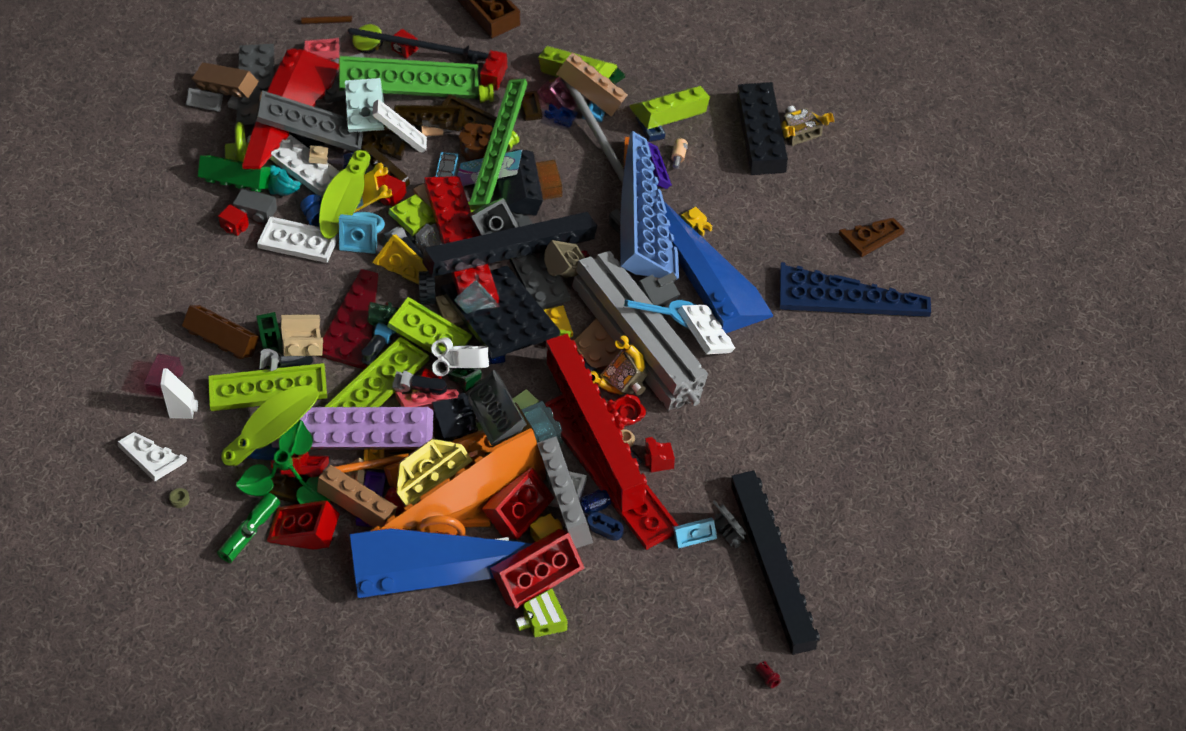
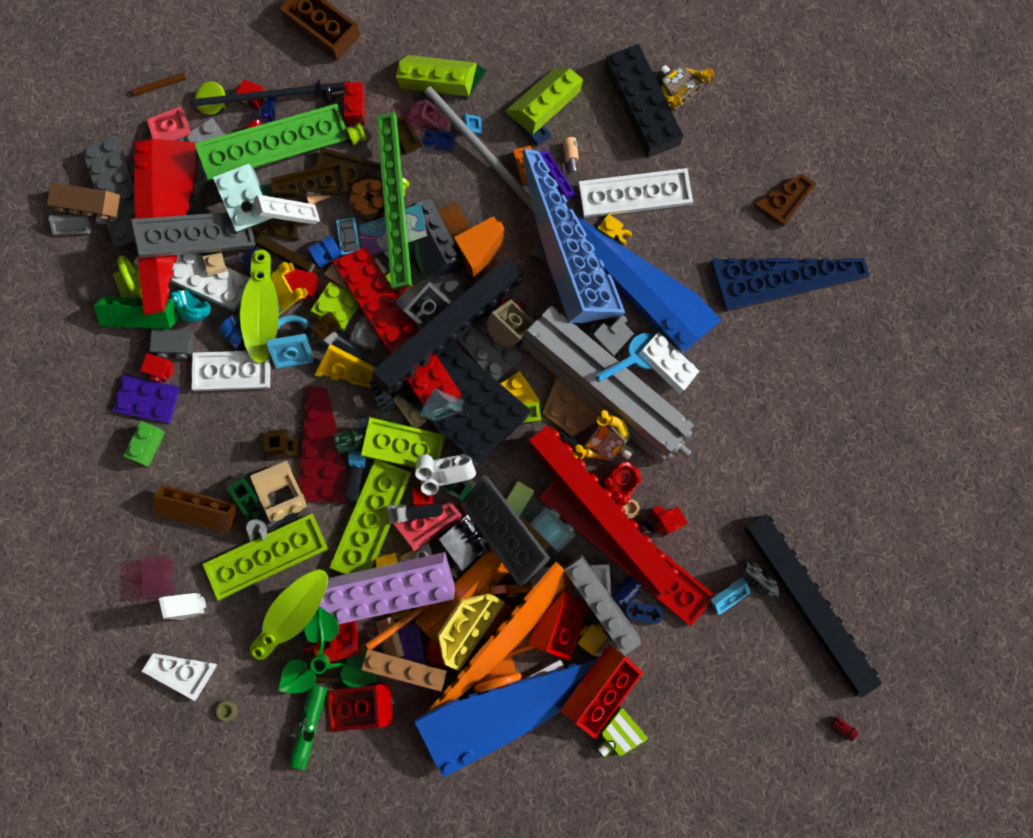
camera: 20 degrees left, 25 degrees up
(197, 272) = (144, 443): none -> bright green brick
(213, 243) = (146, 399): none -> dark purple plate
(317, 303) = (279, 445): none -> dark brown brick
(393, 221) = (321, 327): none -> dark brown hips
(417, 54) = (268, 111): none -> clear blue plate
(426, 167) = (324, 251): none -> blue wheel
(565, 195) = (480, 245): none -> orange slope
(592, 84) = (462, 98): medium nougat brick -> none
(727, 196) = (635, 193): none -> white plate

